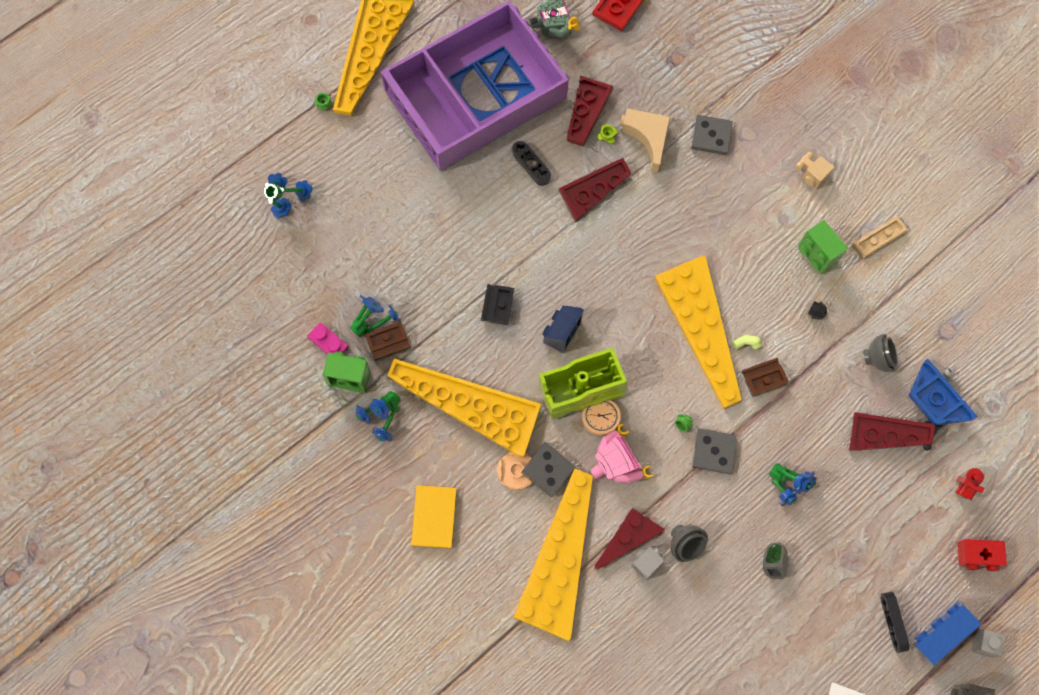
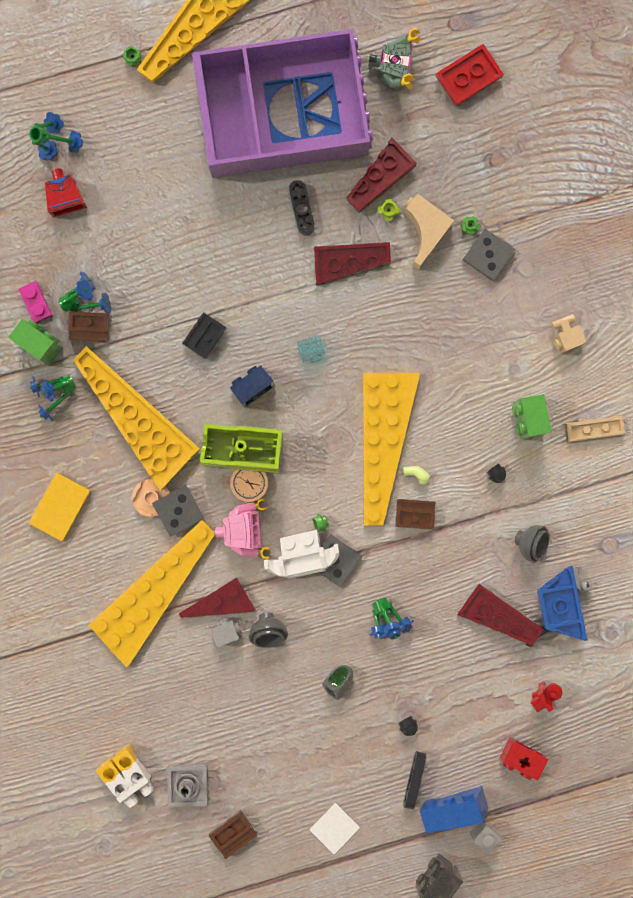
camera: 20 degrees right, 15 degrees up
(314, 237) = (63, 194): none -> red torso
(599, 274) = (311, 348): none -> clear light blue brick
(683, 121) = (470, 220): none -> bright green plate
(684, 458) = (302, 556): none -> white plate
(861, 572) = (408, 726): none -> black plate

